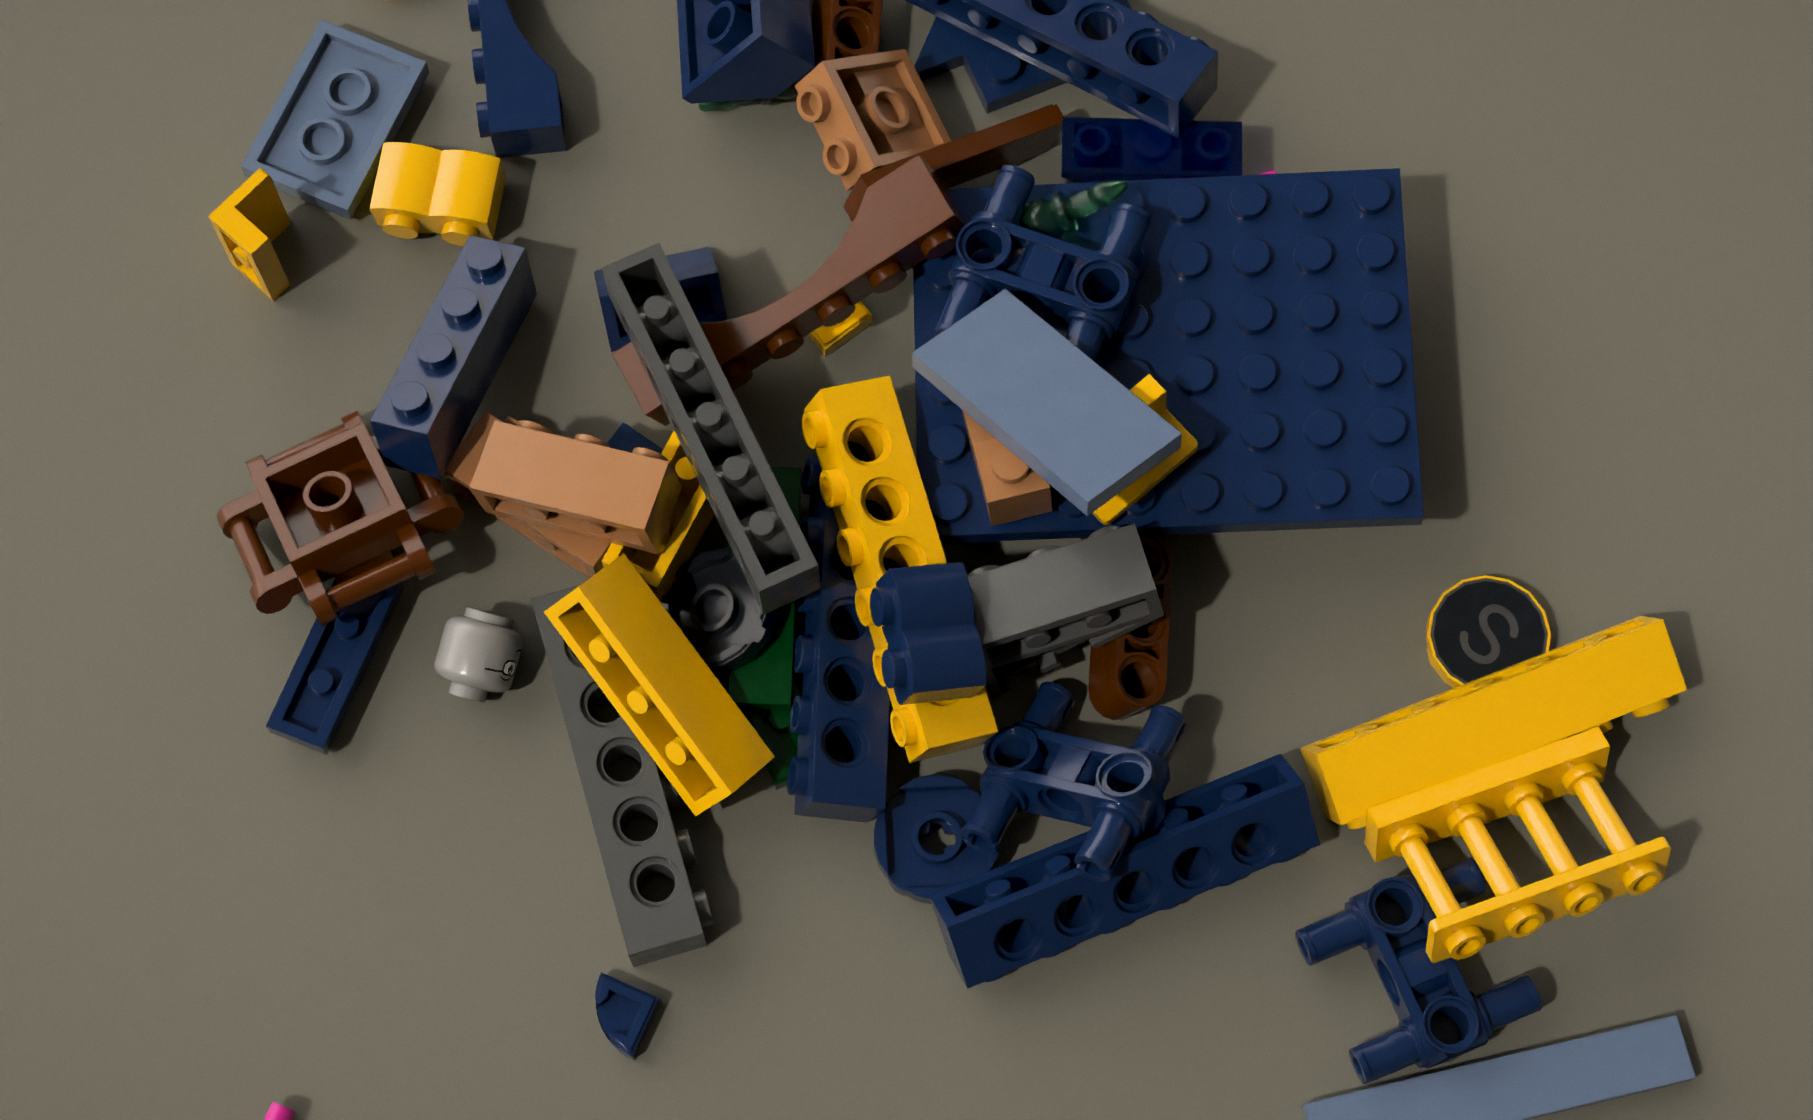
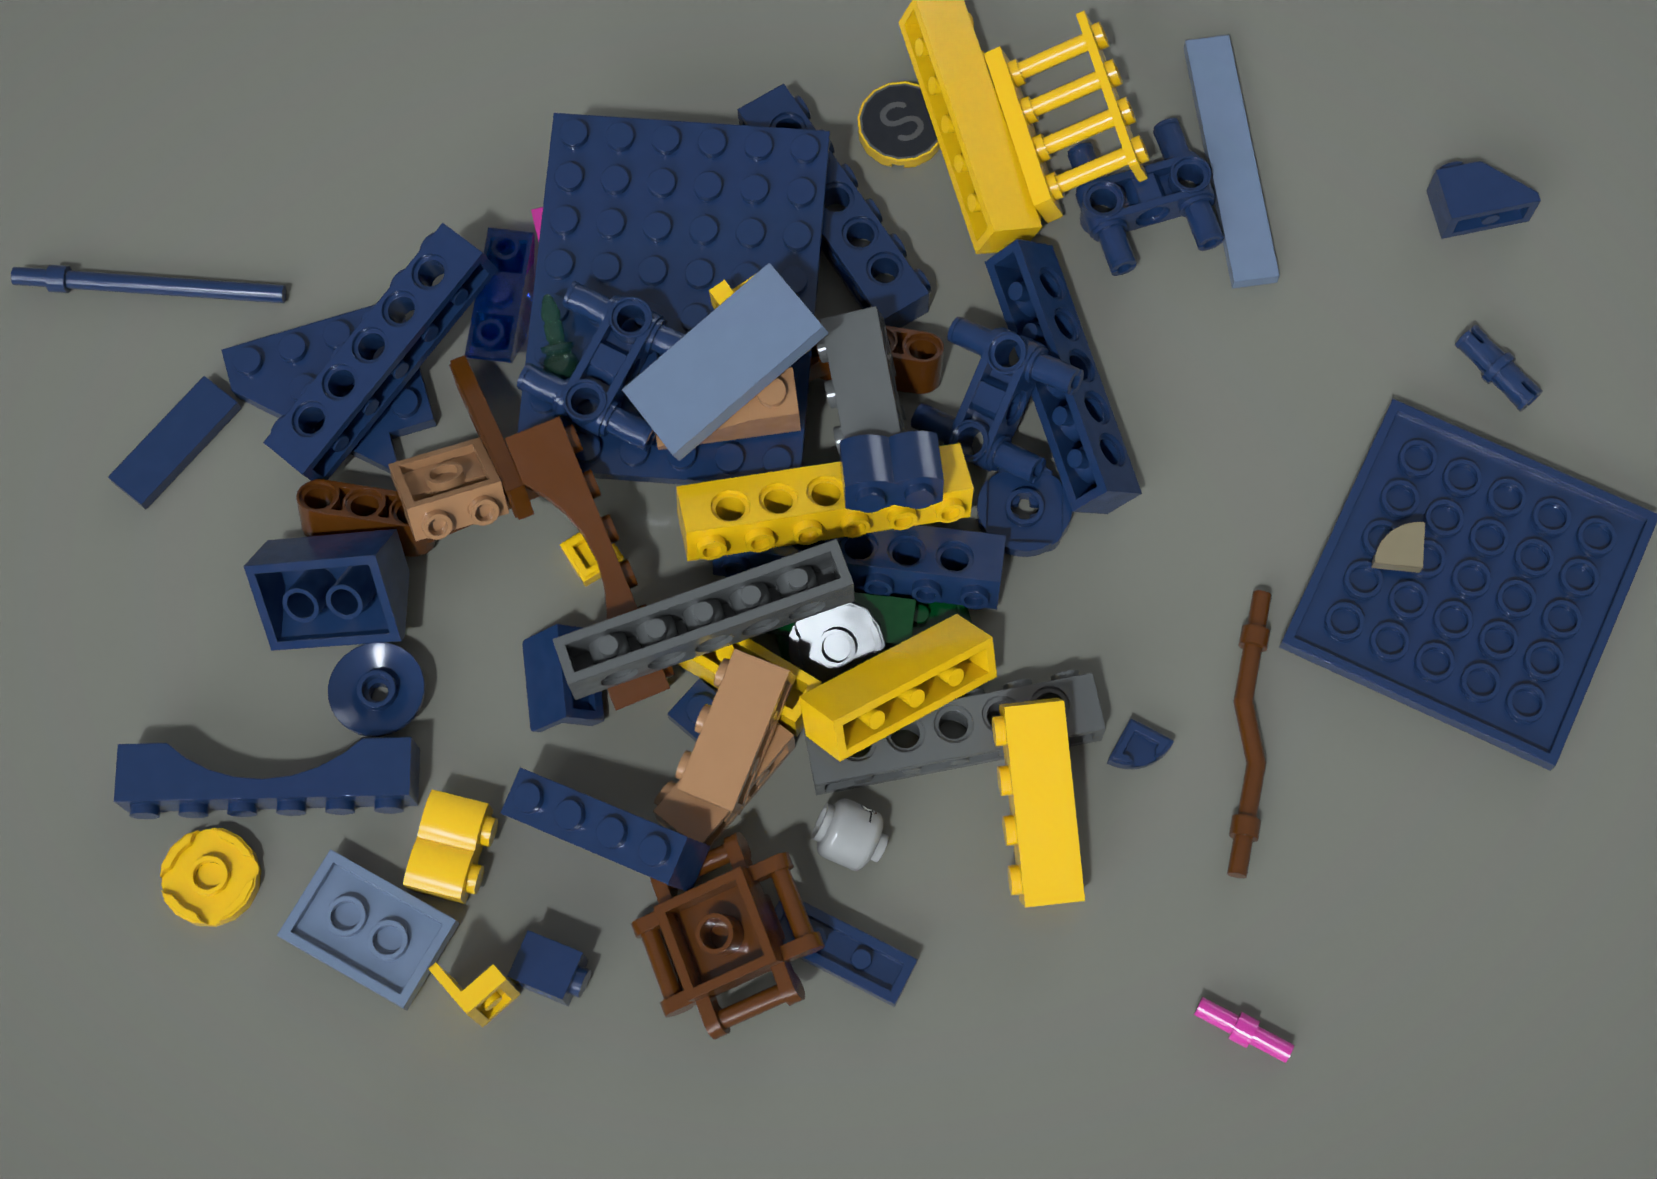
camera: 80 degrees left, 0 degrees up
(294, 322) = (550, 969): none -> dark blue brick
(522, 875) = (1040, 802): none -> yellow brick
(620, 63) = (363, 672): none -> dark blue dish
(1223, 660) = (898, 300): none -> dark blue brick

